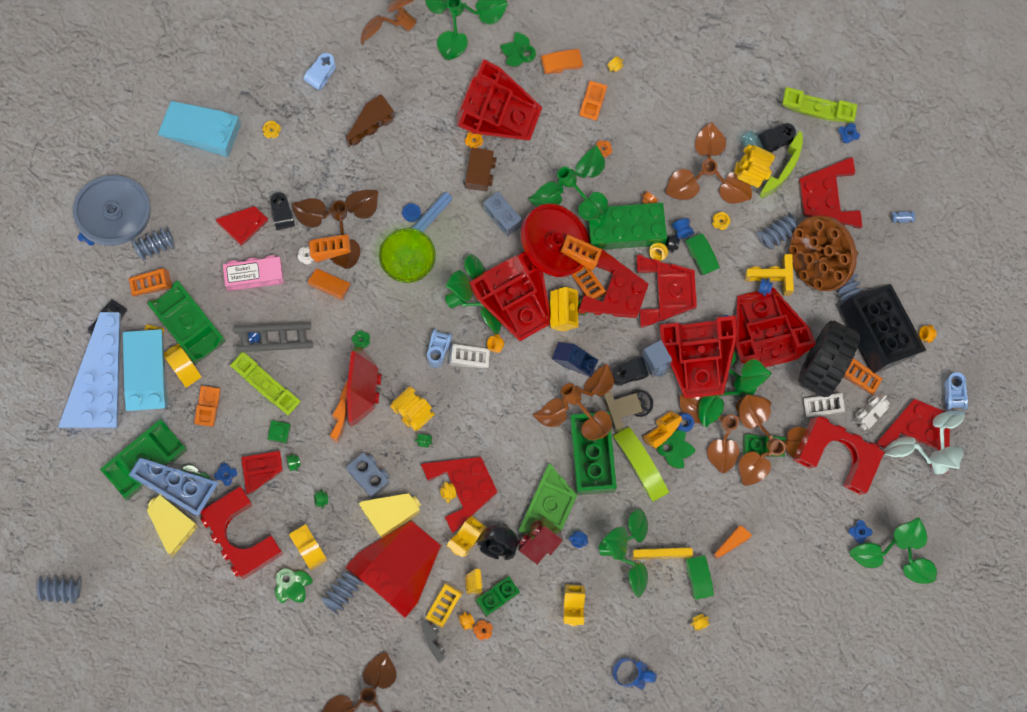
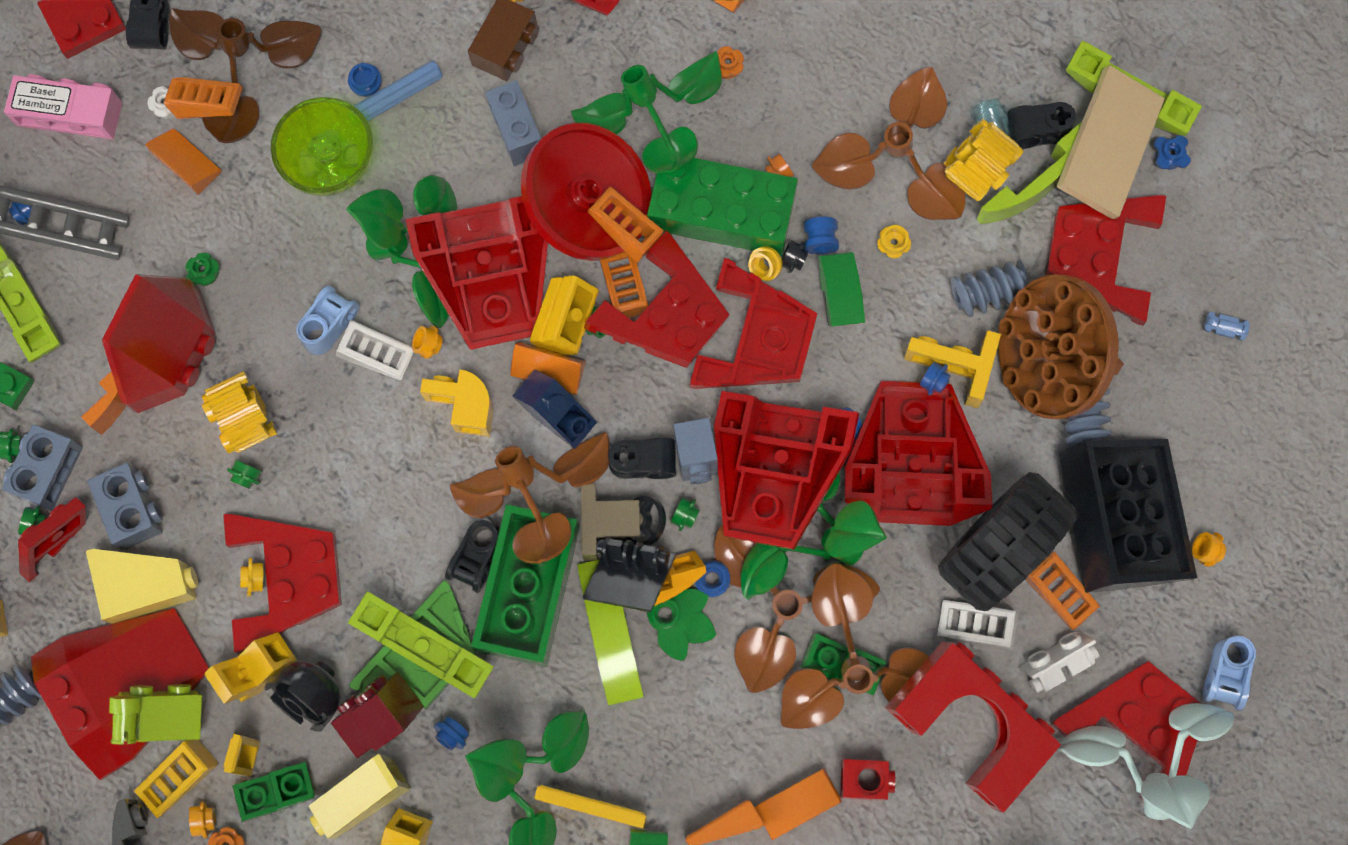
camera: 25 degrees right, 0 degrees up
(320, 468) = (51, 471): none -> sand blue brick
(332, 505) = (49, 536): none -> red wing
(428, 574) = (156, 715): none -> lime hinge
(529, 365) = (470, 401): none -> yellow brick
(544, 584) = (358, 796): none -> light yellow slope
(551, 499) = (420, 645): none -> lime slope
(552, 337) = (561, 367): none -> orange slope
(560, 449) = (473, 557): none -> black piece
(644, 431) = (629, 574): none -> black hinge
(659, 393) = (685, 514): none -> green plate
(764, 520) = (798, 804): none -> orange slope
(786, 502) = (849, 780): none -> red brick
(817, 137) = (1110, 142): none -> tan tile

